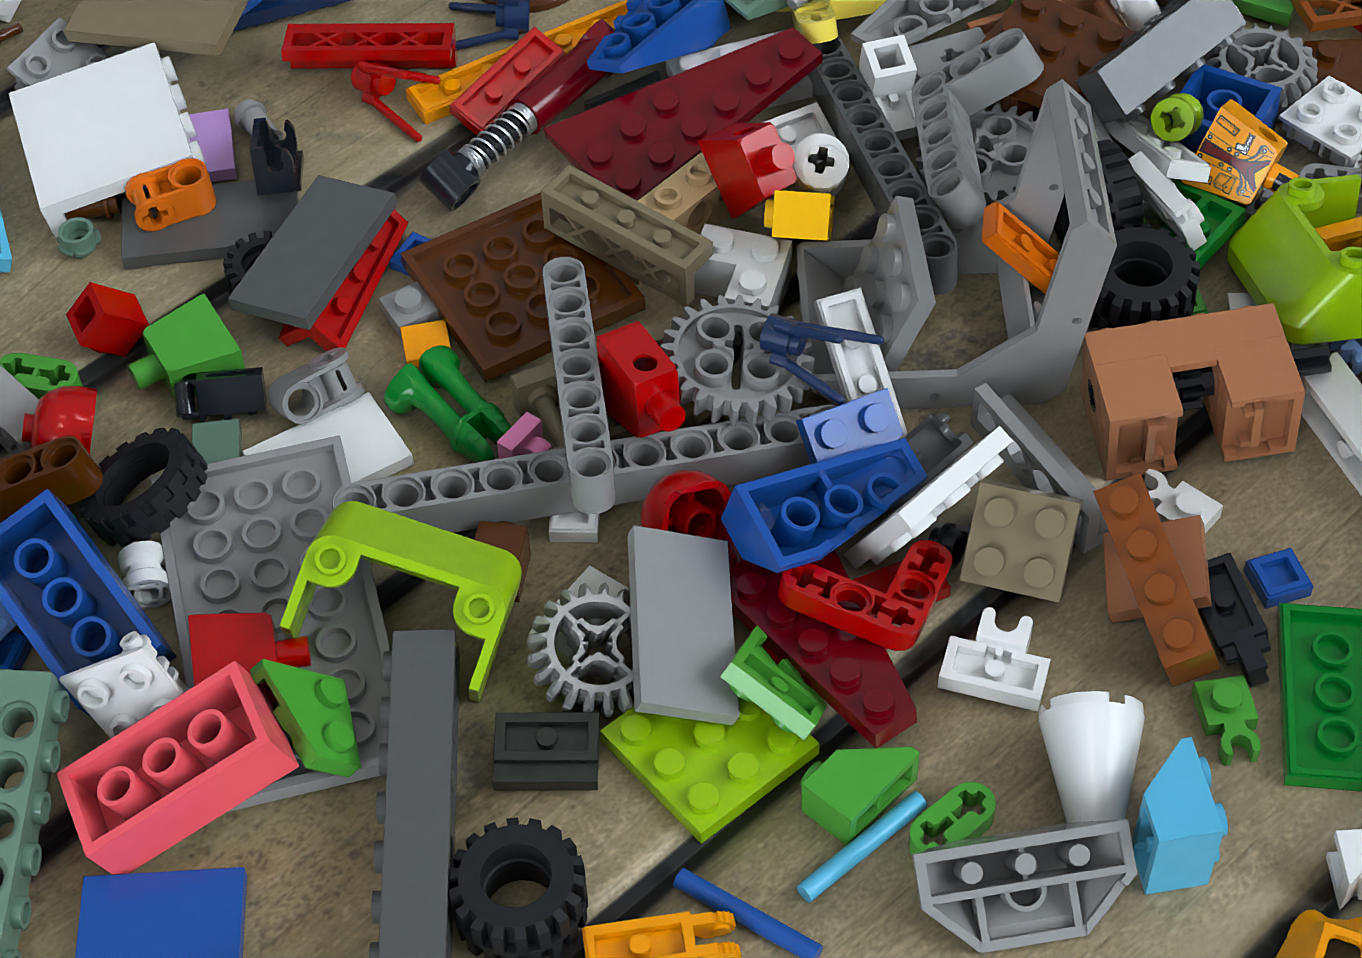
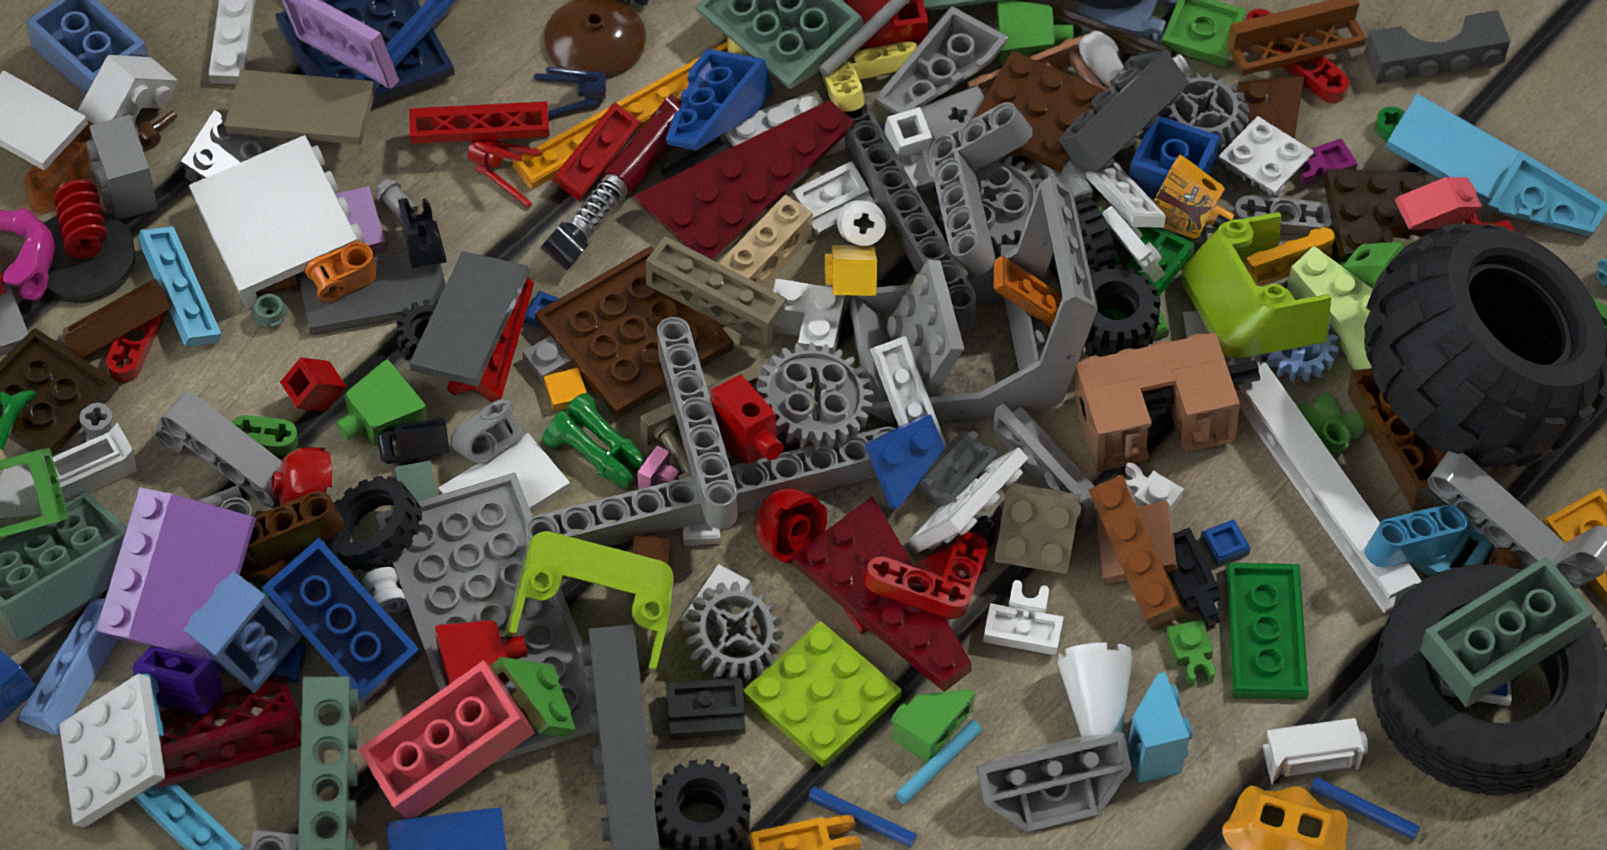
camera: 10 degrees left, 5 degrees up
(126, 685) = (400, 685): white hinge -> none
(681, 625) = (796, 609): light grey tile -> none
(748, 164) = (806, 228): red torso -> none
(774, 687) = (867, 651): bright green wing -> none
(789, 336) = (854, 379): dark blue plant -> none
(818, 506) = (888, 513): blue wedge -> none
(946, 813) = (996, 735): bright green beam -> none
(1184, 110) = (1144, 162): lime wheel -> none

